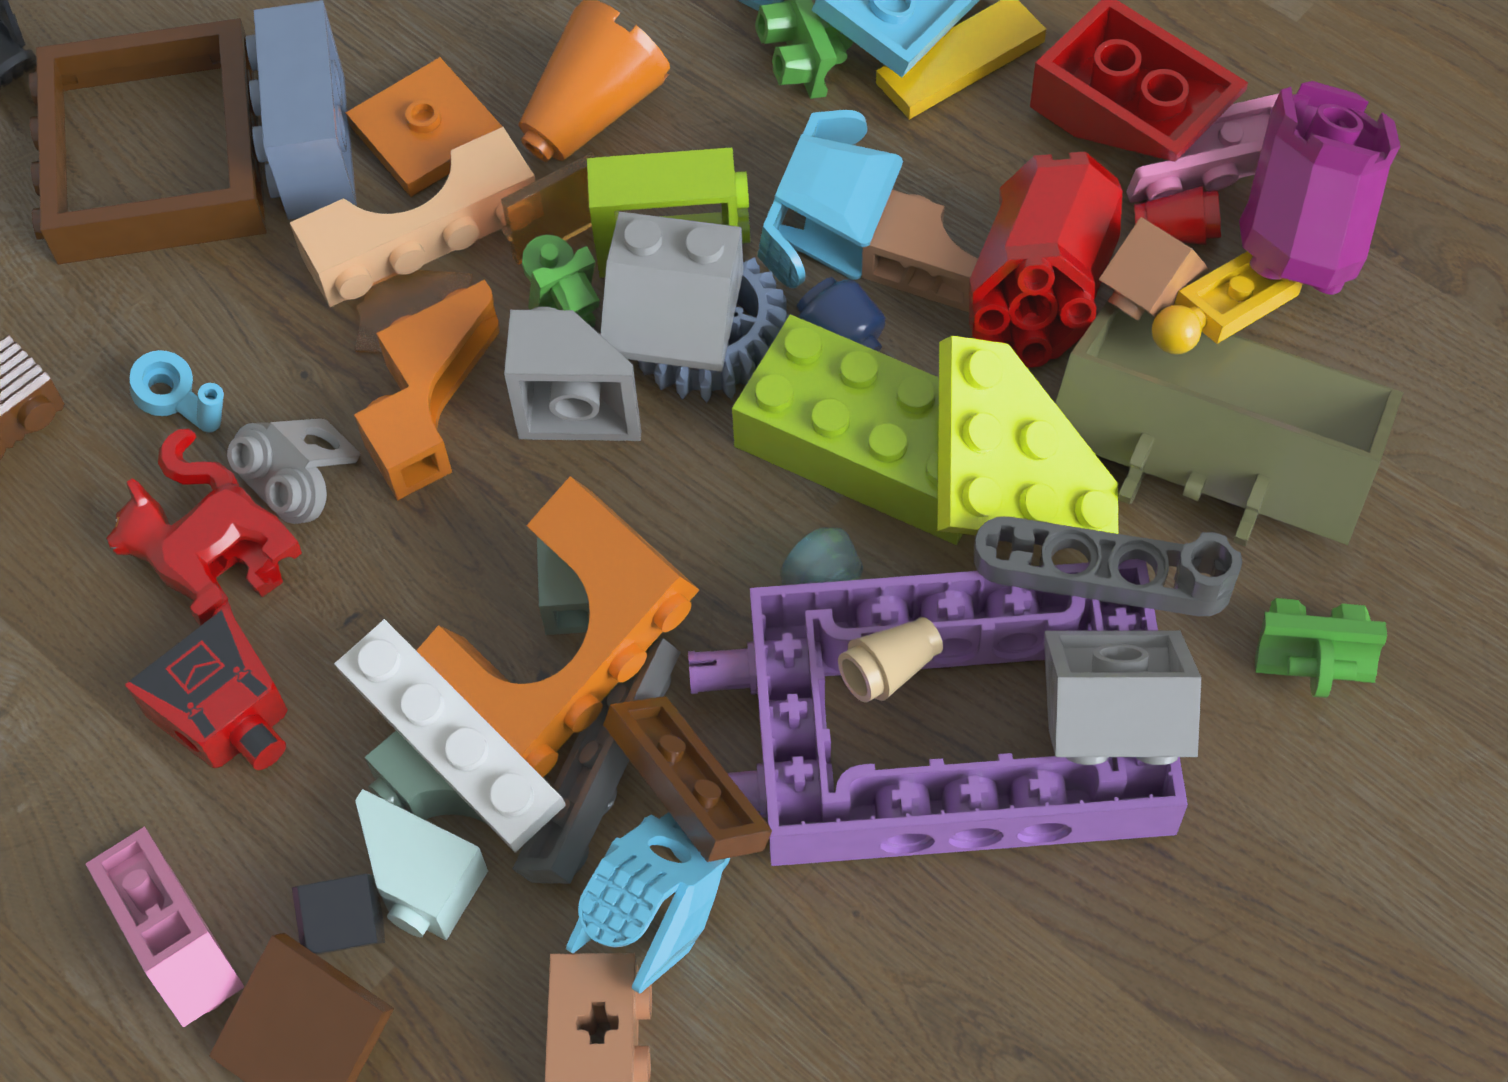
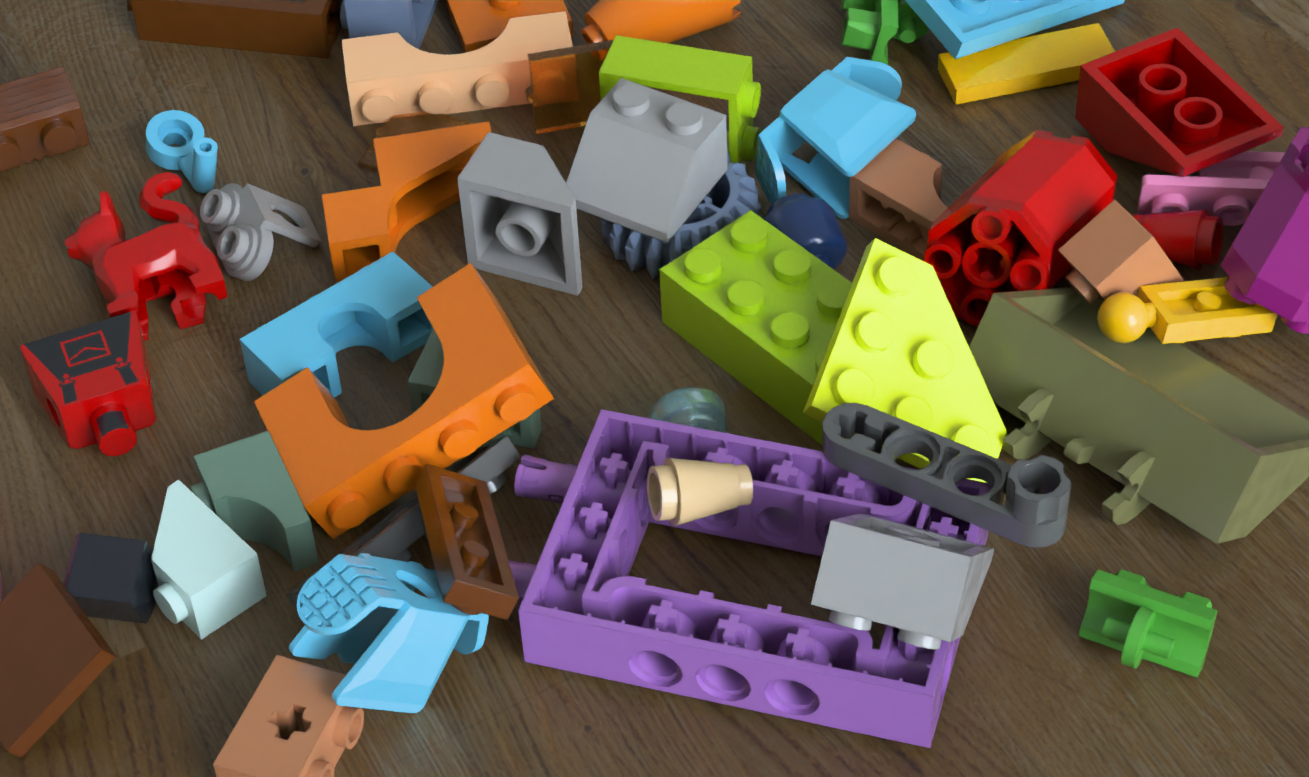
camera: 20 degrees right, 15 degrees down
(450, 735) = (275, 456): white plate -> none
(459, 520) = (366, 309): none -> medium azure arch
(560, 277) = (558, 128): bright green hips -> none

